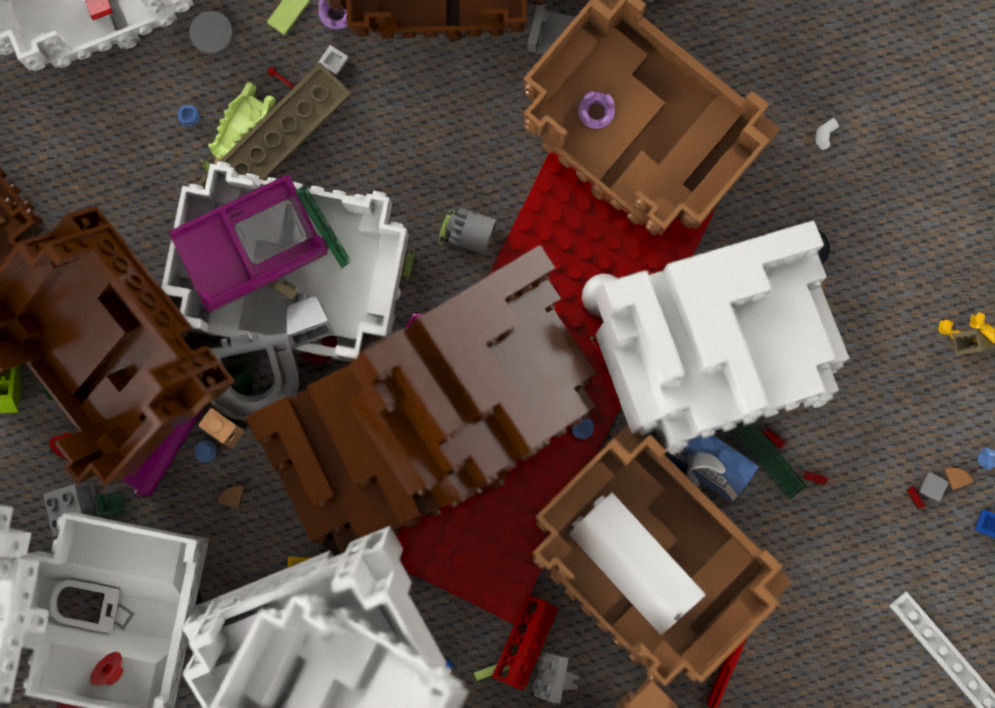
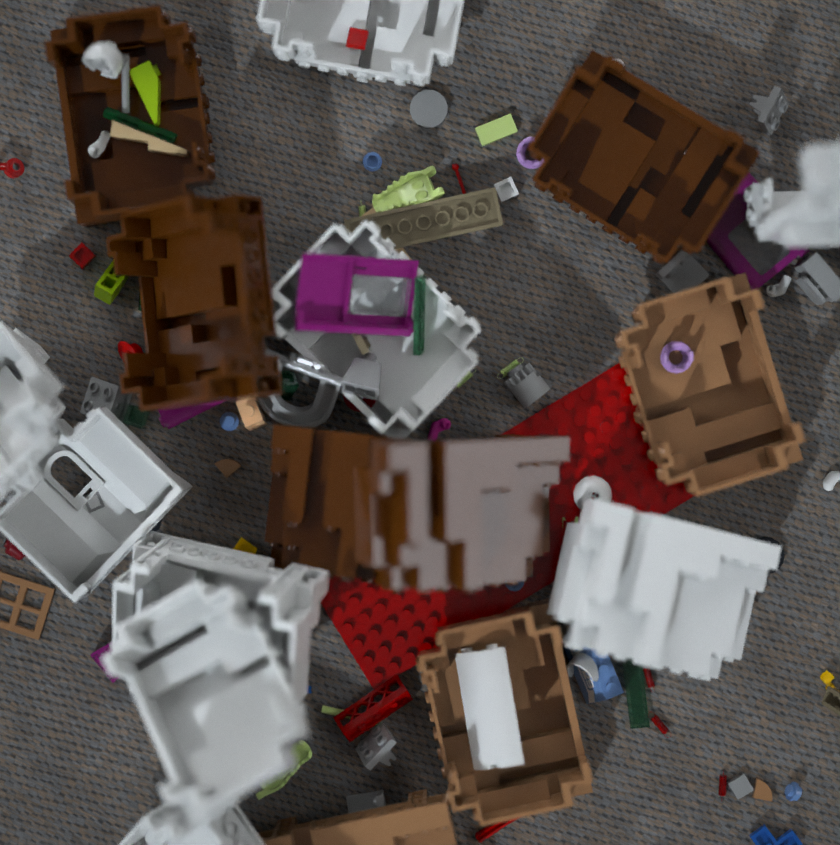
camera: 30 degrees right, 5 degrees up
(107, 670) = (60, 538): red piece -> none

